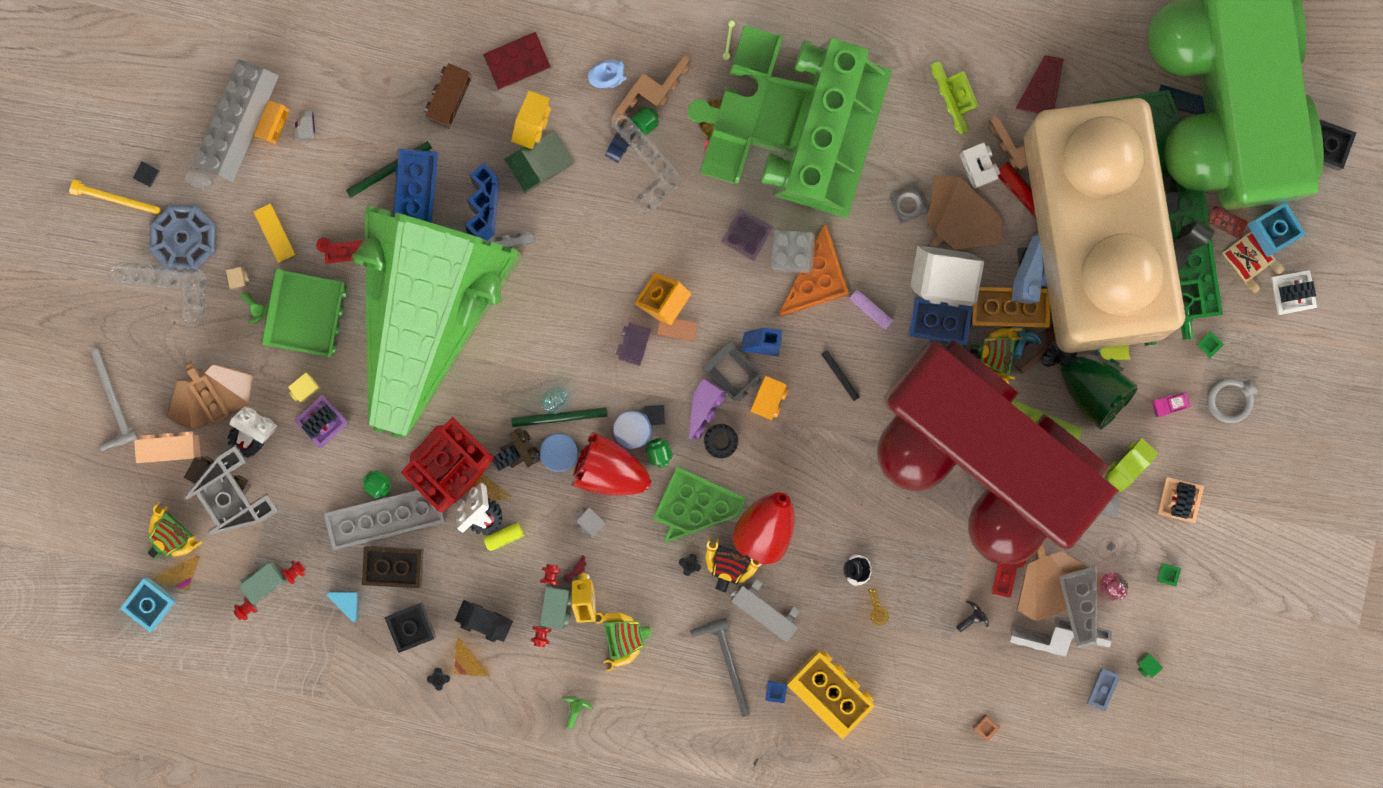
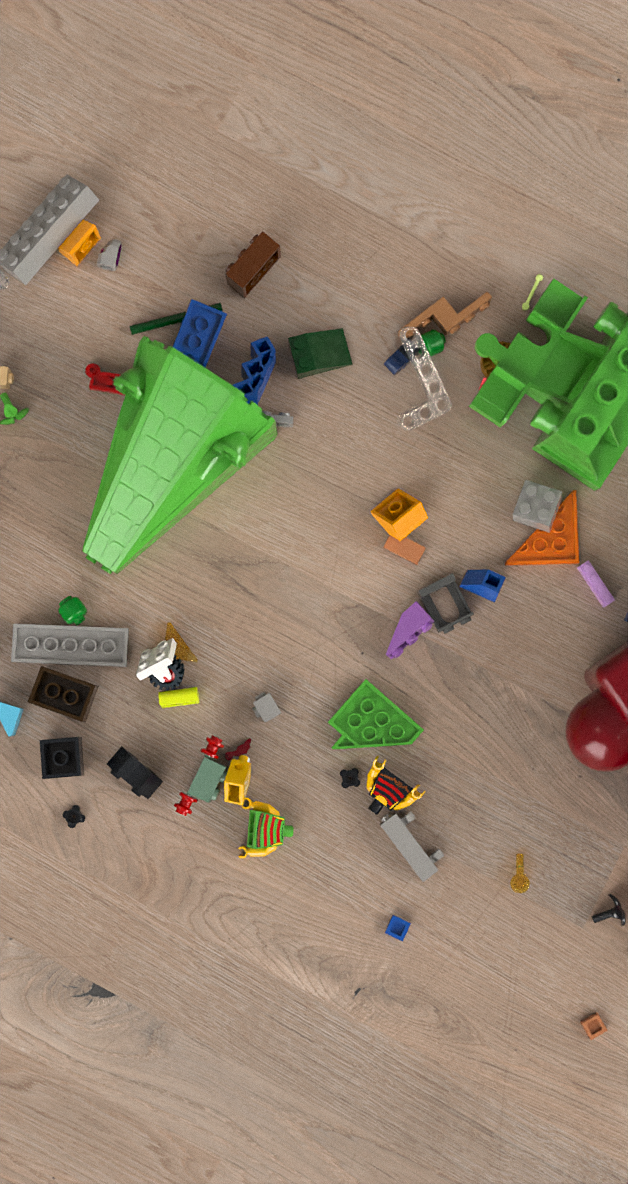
camera: 20 degrees right, 5 degrees down
(274, 233) = (50, 347): yellow tile -> none
(303, 313) = (53, 428): bright green panel -> none
(303, 387) = (31, 498): light yellow brick -> none
(321, 421) = (38, 535): plate -> none
(447, 464) = (145, 611): red slope -> none
(466, 663) = (106, 809): clear yellow tile -> none
(517, 60) = (327, 253): dark red plate -> none
(517, 451) = (216, 618): dark brown plate -> none
(531, 120) = (324, 308): yellow brick -> none
(555, 400) = (268, 580): clear light blue head -> none
(558, 452) = (256, 632): medium blue tile -> none
(560, 417) = (266, 598): dark green piece -> none
(575, 707) = (197, 884): bright green plant -> none
(607, 74) = (408, 289): light blue hat -> none
(609, 469) = (300, 661): red cylinder -> none
(632, 429) = (333, 631): tile -> none
(634, 343) = (359, 549): clear purple brick -> none
(655, 414) = (358, 623): black tile -> none
(659, 452) = (352, 660): green head -> none
(719, 628) = (360, 848): dark grey bar -> none
(729, 449) = (415, 655): black tyre -> none
(747, 234) = (497, 477): clear purple brick -> none
(766, 528) = (436, 763): red cylinder -> none
(768, 398) = (474, 638): light orange brick -> none
(828, 706) = (447, 958): yellow brick -> none
(840, 375) = (548, 638): black bar -> none
(857, 569) = (511, 831): black hair -> none

